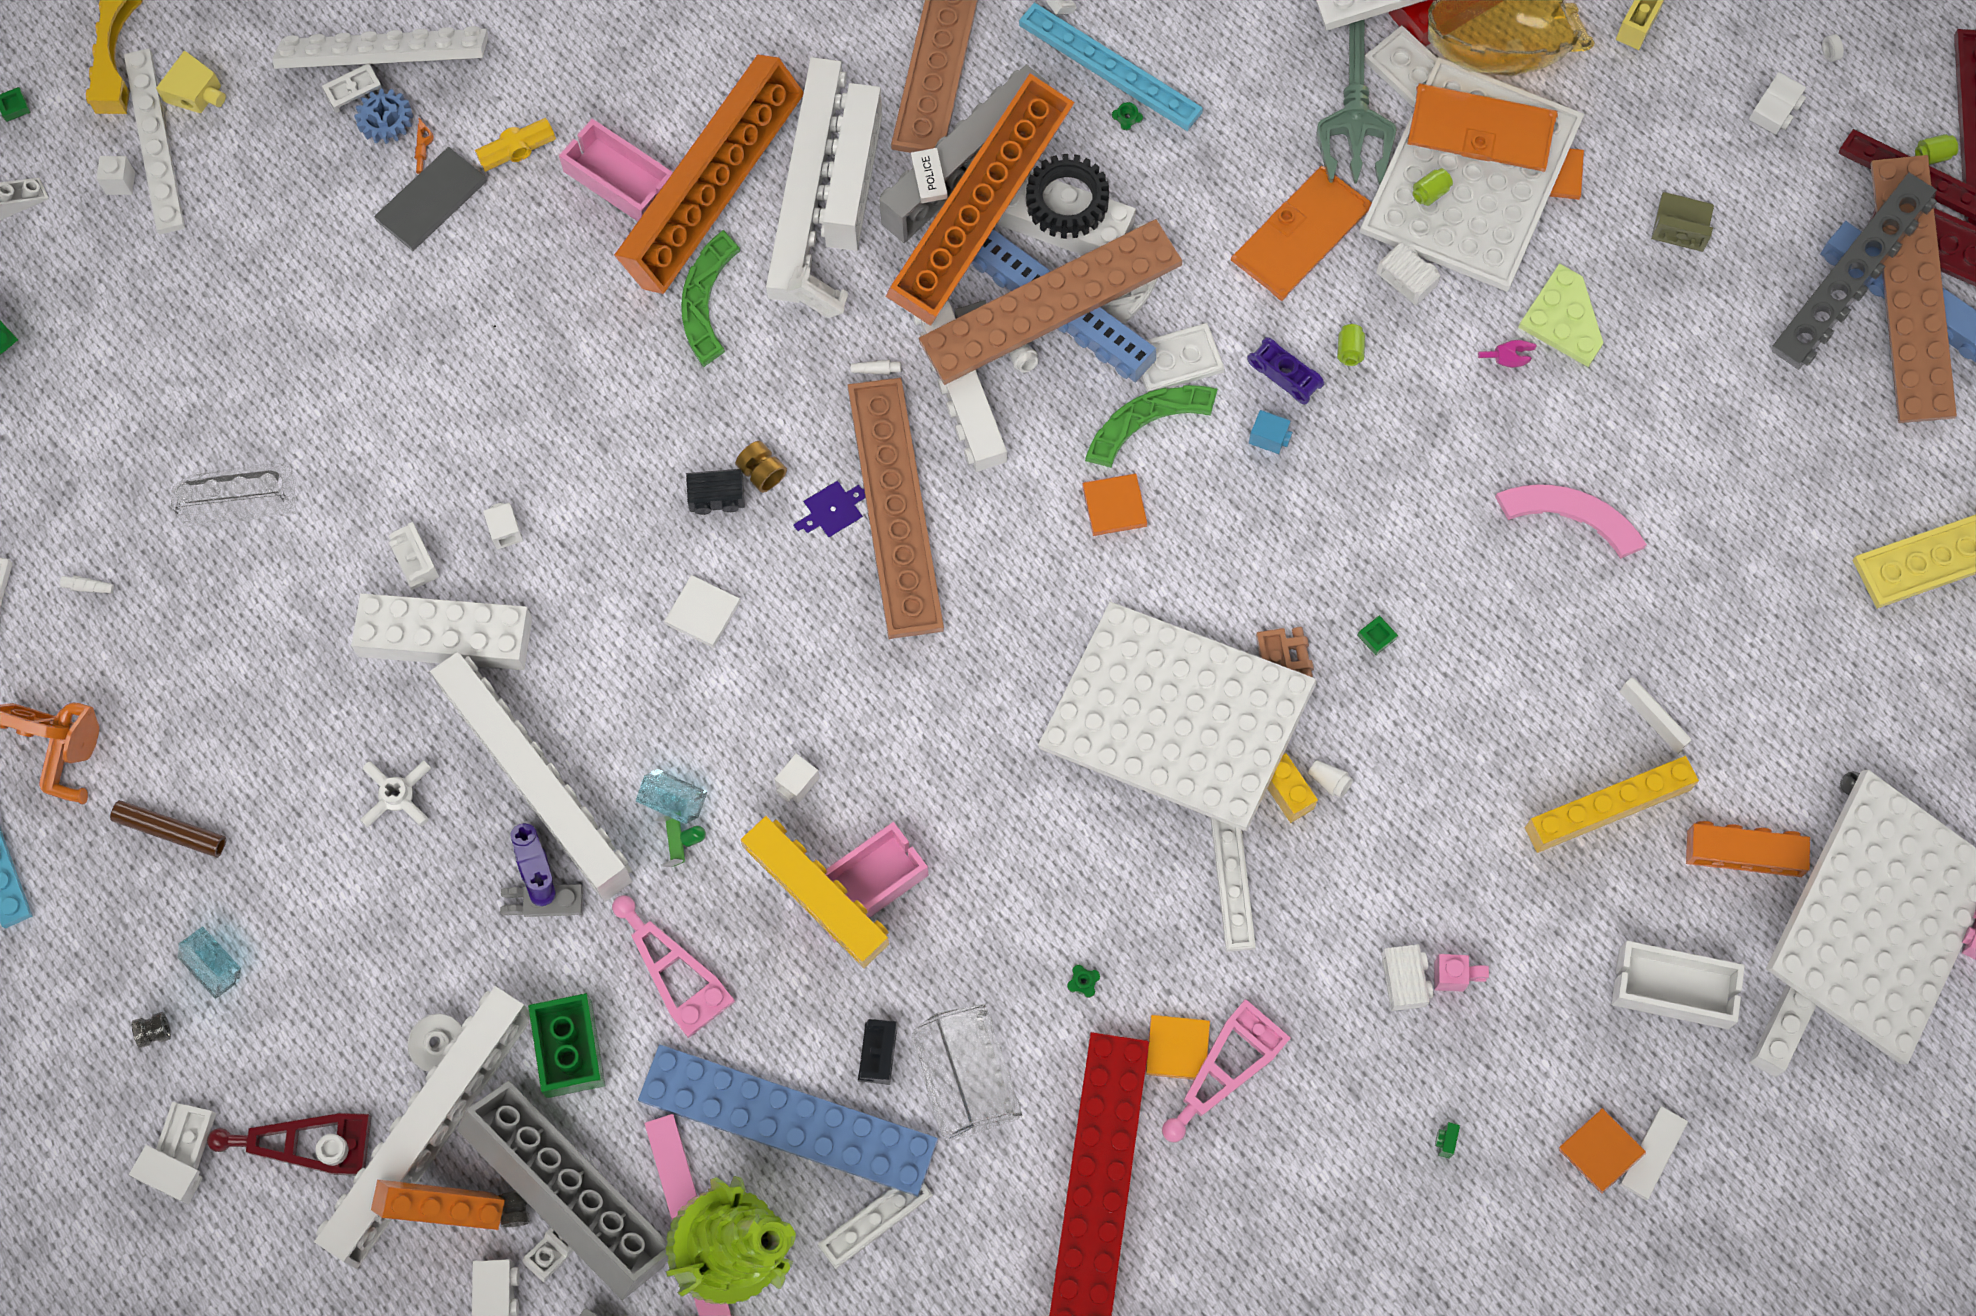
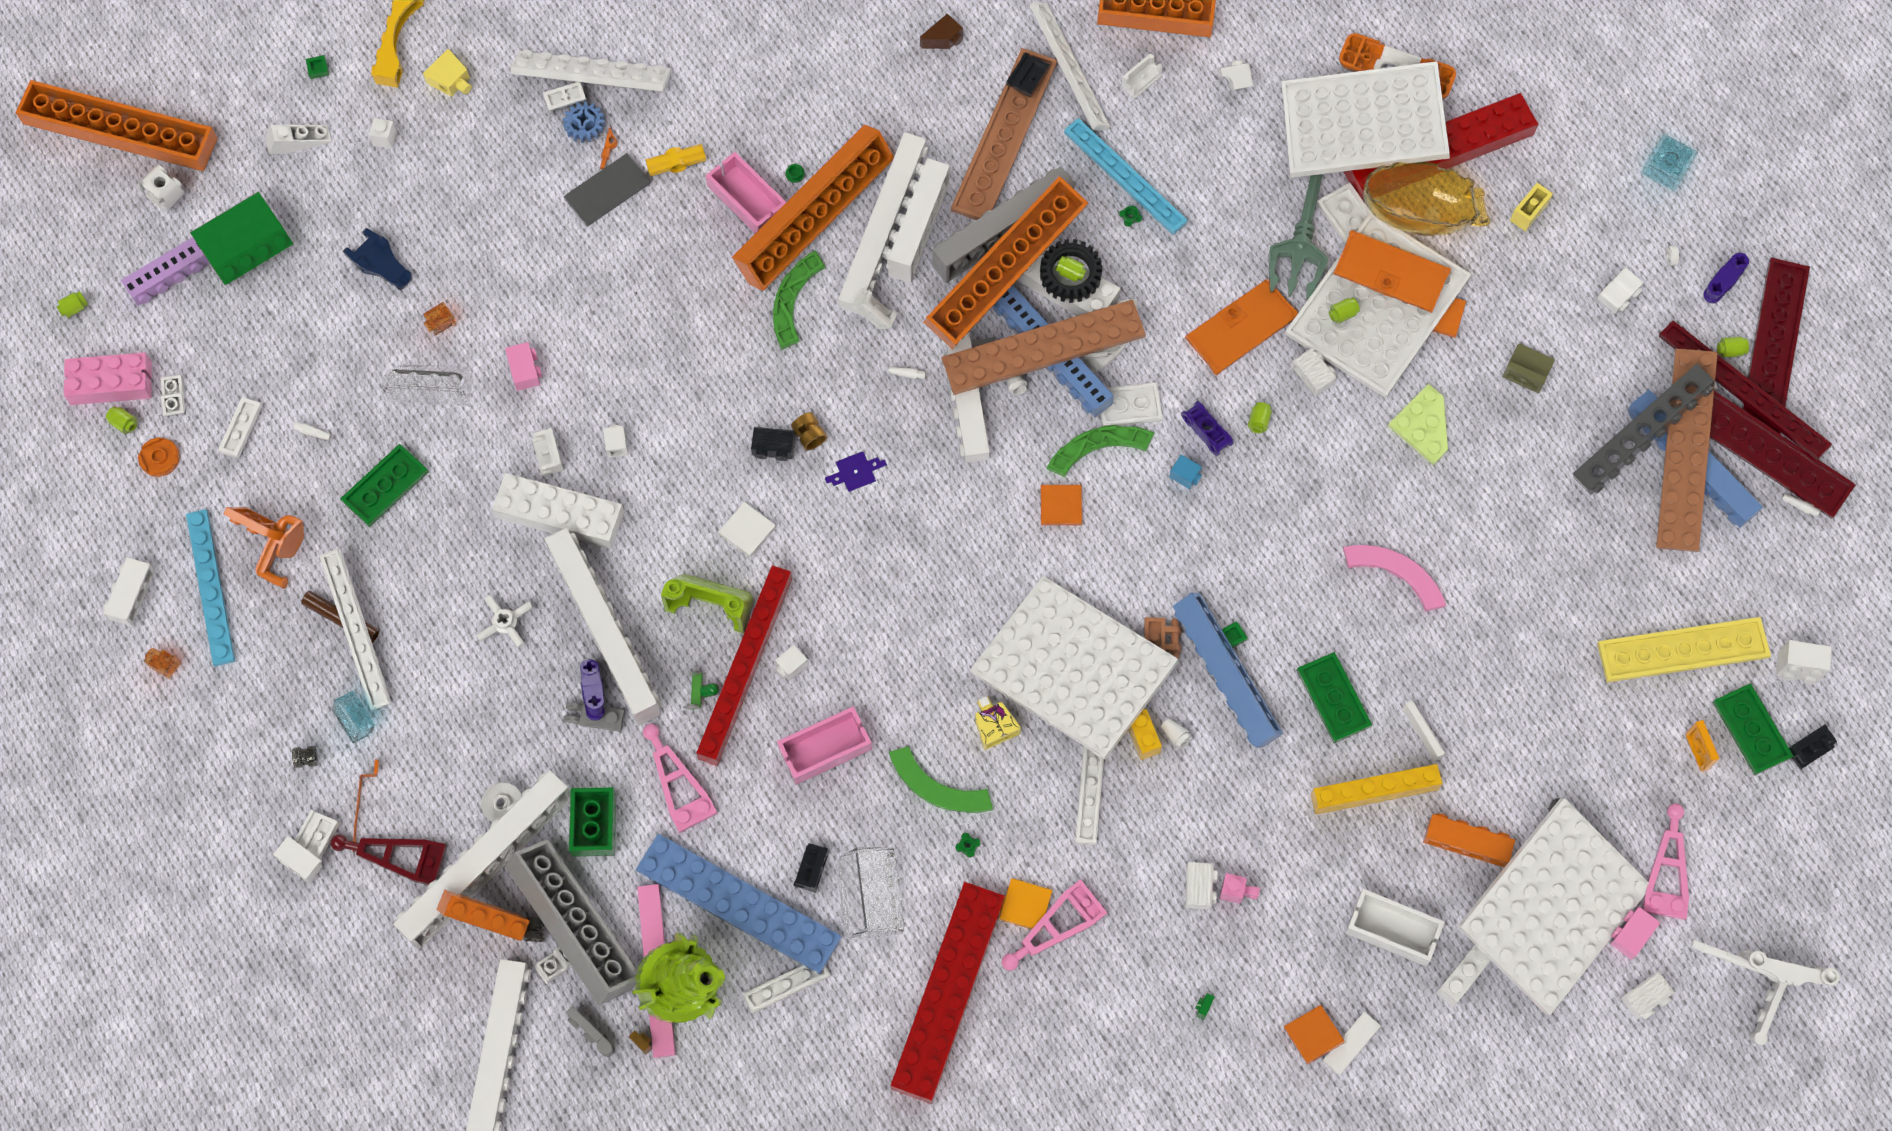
camera: 10 degrees right, 0 degrees up
(136, 341) = (377, 259): none -> dark blue animal
(154, 142) = (414, 112): white plate -> none
(191, 842) = (355, 629): none -> white tile
(198, 640) = (384, 485): none -> green plate
(234, 405) = (442, 315): none -> clear orange brick
(253, 1033) = (359, 793): none -> orange piece
(331, 1149) = (415, 863): white tile -> none
(359, 447) = (522, 366): none -> bright pink brick
(631, 704) = (736, 602): none -> lime windscreen
(671, 796) = (699, 659): clear light blue brick -> none
(676, 135) = (795, 173): none -> green plate
(734, 795) = (744, 666): none -> red brick
(815, 891) = (787, 745): yellow brick -> none
(895, 508) = (900, 479): nougat plate -> none
(929, 175) = (971, 238): white tile -> none
(1026, 918) = (934, 792): none -> bright green tile
(1066, 193) = (1070, 269): none -> lime brick
(1086, 810) = (995, 723): none -> light yellow torso
(1381, 682) = (1227, 670): none -> medium blue brick
(1506, 353) = (1373, 444): dark pink hand -> none
(1528, 693) = (1334, 697): none -> green plate
(1907, 64) = (1726, 278): none -> dark purple piece

